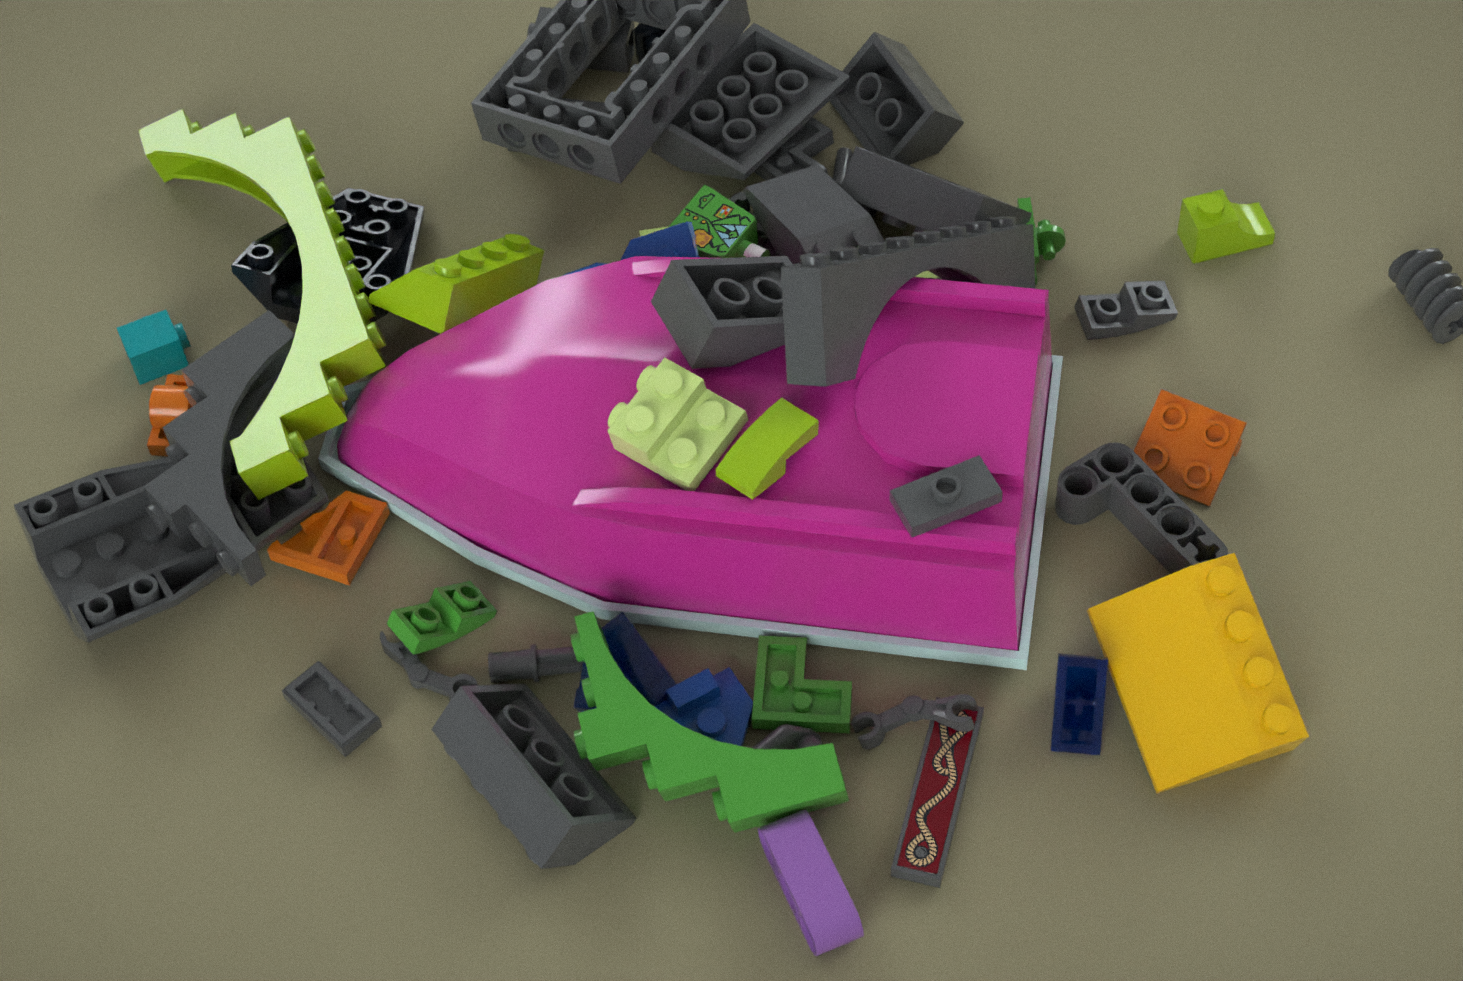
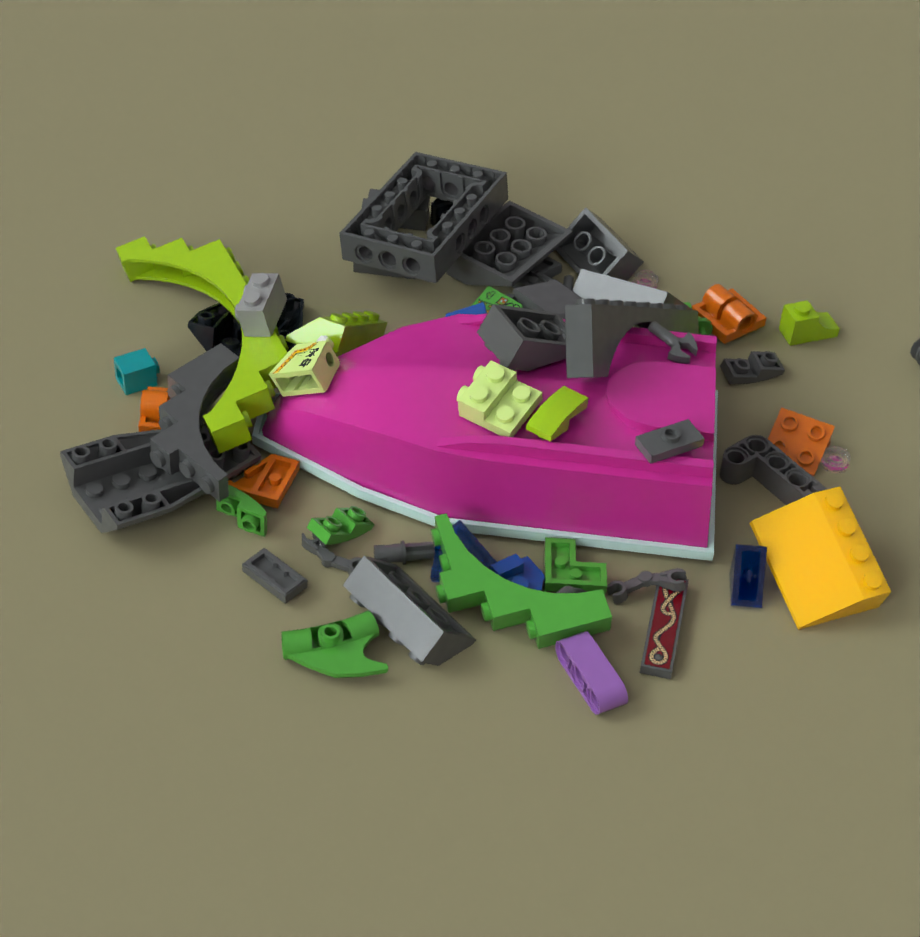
camera: 10 degrees left, 10 degrees down
(299, 598) = (248, 511): none -> bright green slope
(329, 246) = (261, 305): none -> light grey brick
(392, 357) = (306, 368): none -> yellowish green torso
(411, 840) = (335, 647): none -> bright green pin
(967, 154) = (646, 278): none -> clear tile
(974, 306) = (675, 343): none -> dark grey bar
(1094, 212) = (729, 313): none -> orange plate
(1247, 477) = (835, 460): none -> clear tile

